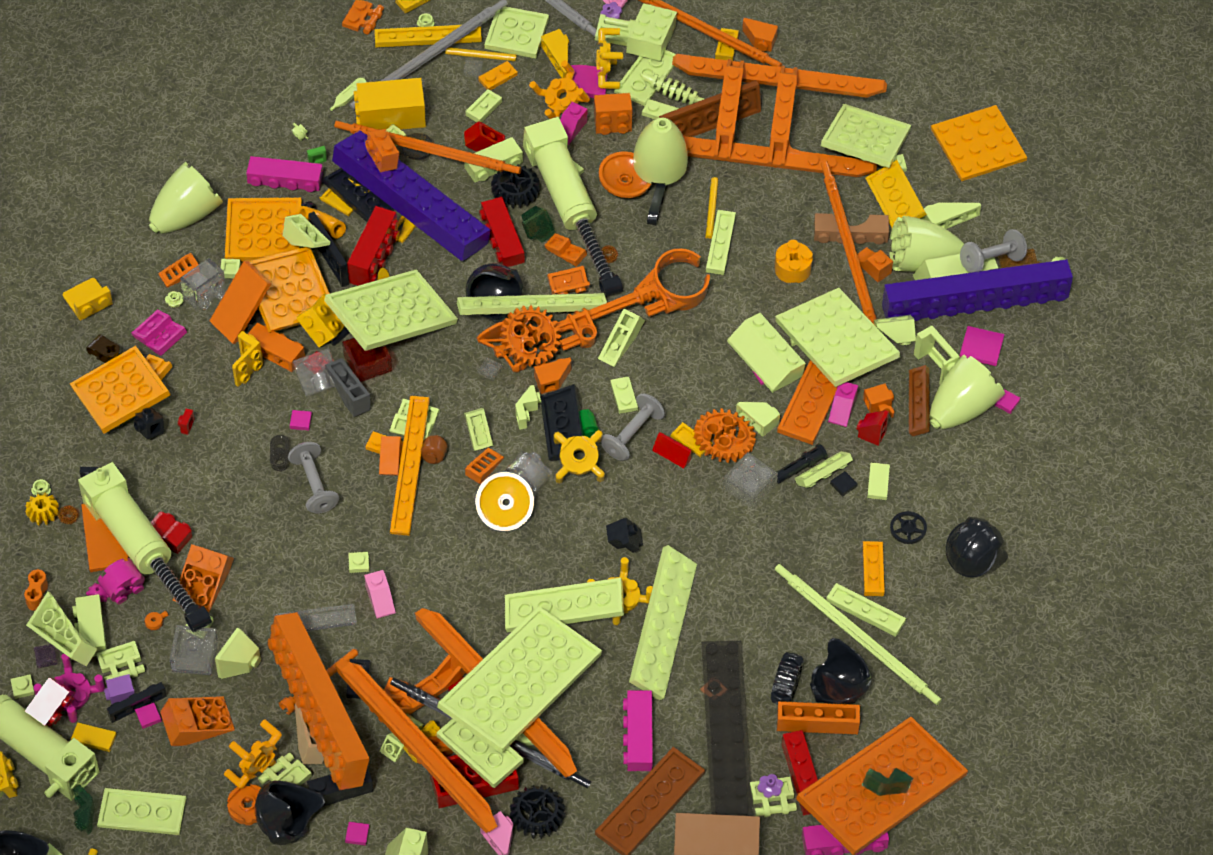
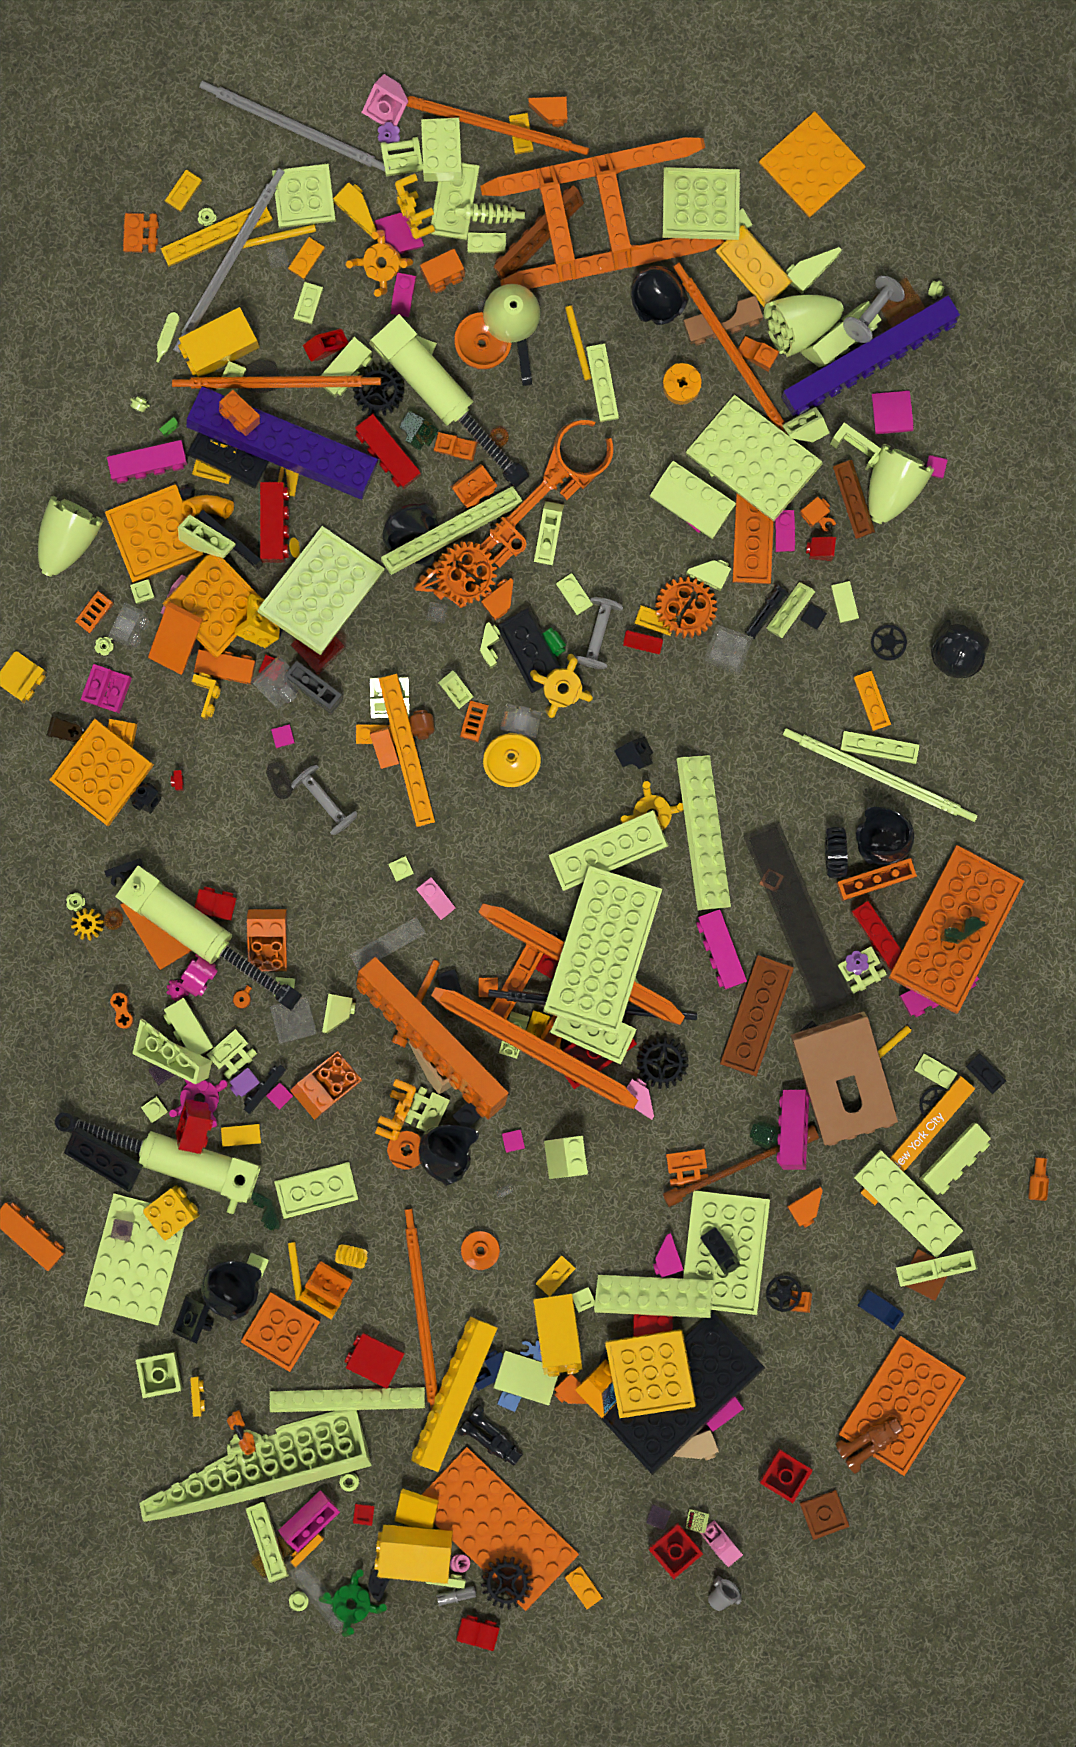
camera: 20 degrees left, 30 degrees up
(799, 186) = (658, 295): none -> black piece

